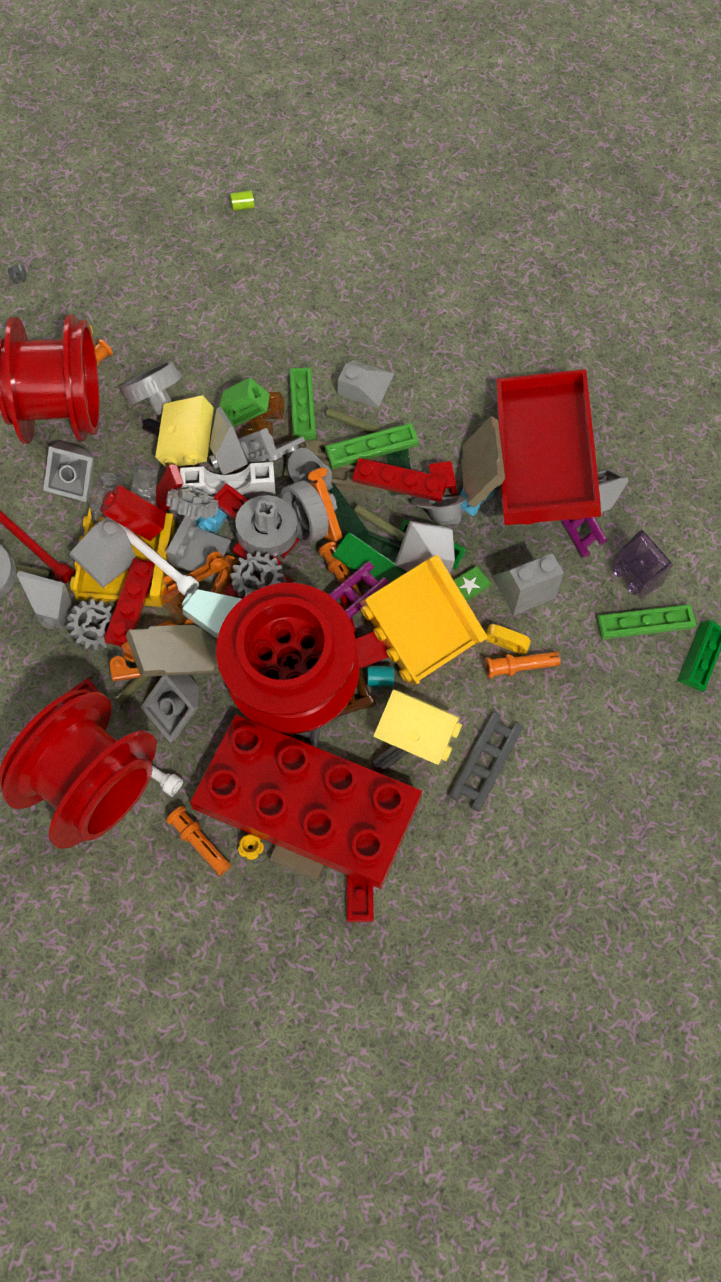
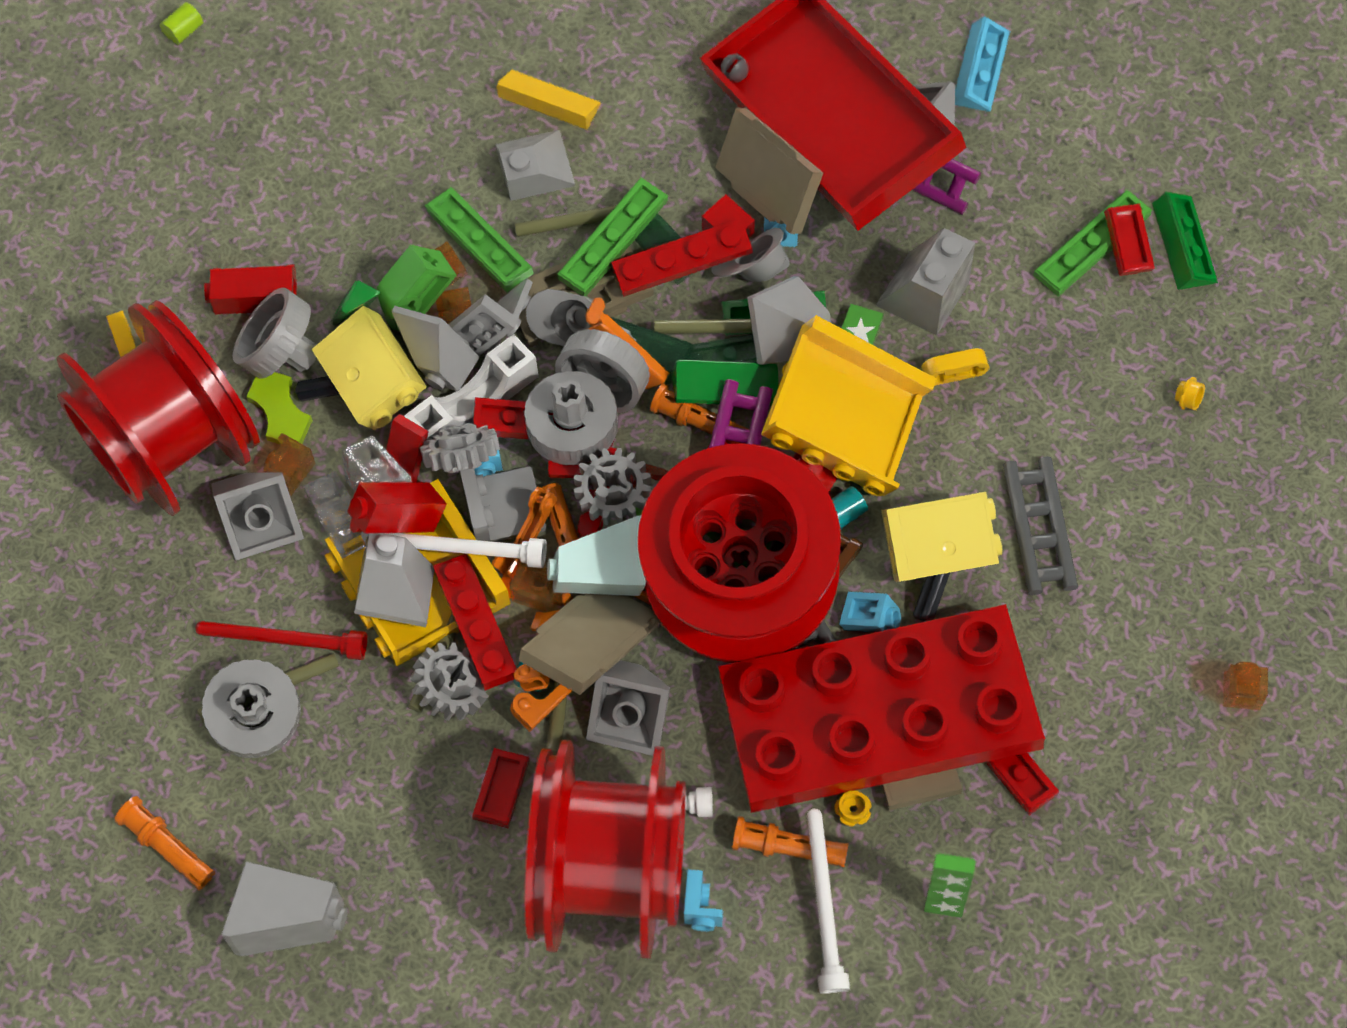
camera: 30 degrees left, 0 degrees up
(48, 599) = (365, 689): light grey slope -> none
(107, 457) = (292, 460): none -> clear orange brick
(122, 834) = (696, 896): none -> medium azure bracket
(126, 434) = (274, 399): none -> lime tile
(158, 351) = (245, 288): none -> red brick
(161, 932) = (832, 975): none -> white piece
(201, 388) = (356, 297): none -> green slope
(253, 926) = (949, 885): none -> bright green tile
(348, 744) = (869, 612): none -> medium azure bracket
(400, 353) = (547, 99): none -> yellow slope
(510, 665) = (982, 394): orange pin -> none
(512, 398) = (739, 71): none -> dark grey hinge
(530, 937) = (1245, 680): none -> clear orange brick
(634, 745) = (1190, 394): none -> yellow plate
(641, 565) = (1043, 177): clear purple slope -> none
(660, 482) = (981, 65): none -> medium azure slope
(668, 633) = (1129, 239): none -> red tile

